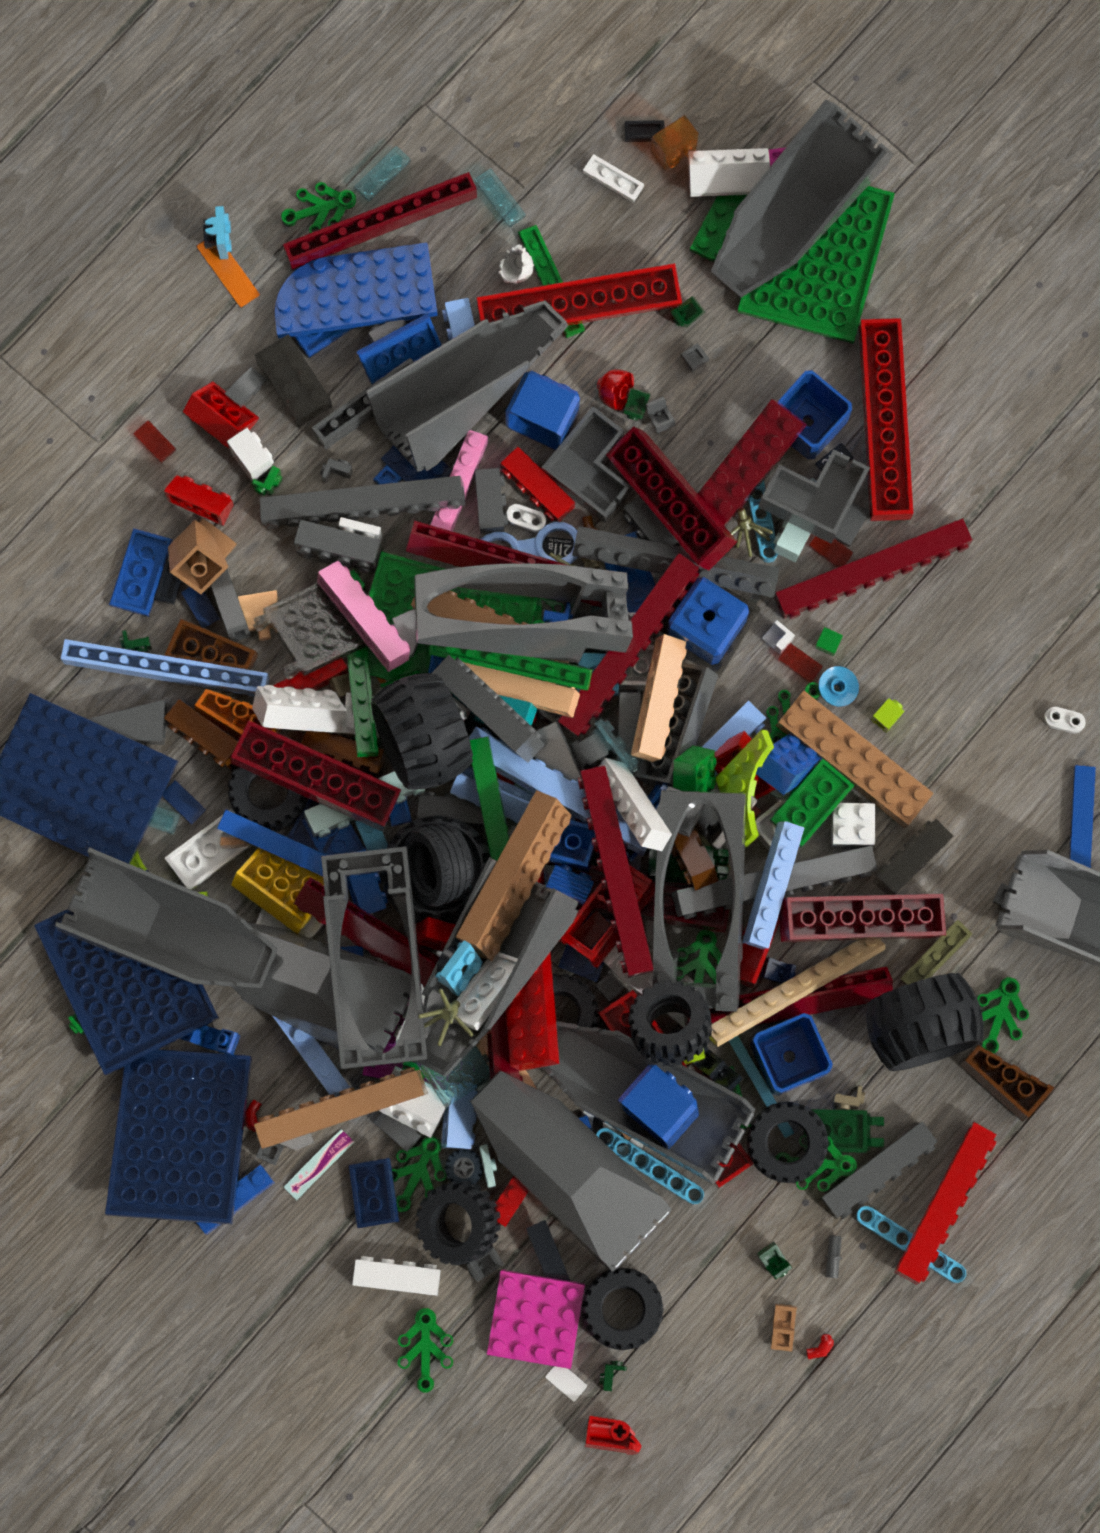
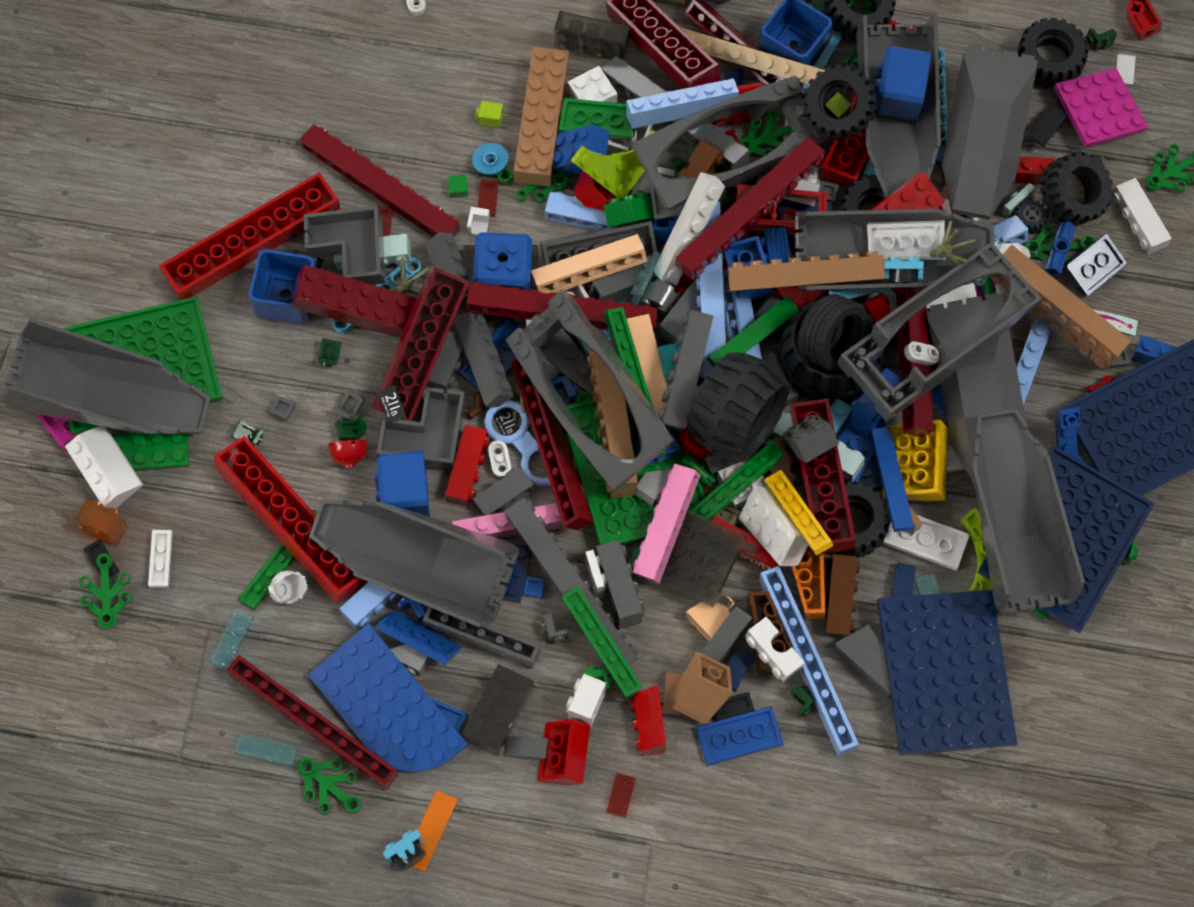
camera: 120 degrees left, 10 degrees down
(169, 635) = (782, 664): none -> white arch
(290, 726) = (798, 512): none -> yellow plate
(291, 494) = (602, 642): none -> green plate
(351, 779) = (810, 438): none -> dark grey slope
(373, 942) = (921, 353): none -> white plate
(401, 1156) = (1062, 240): none -> blue piece
(608, 115) = (106, 594): none -> green plant
(629, 442) = (391, 404): none -> black sticker
(724, 427) = (329, 352): none -> dark green bracket

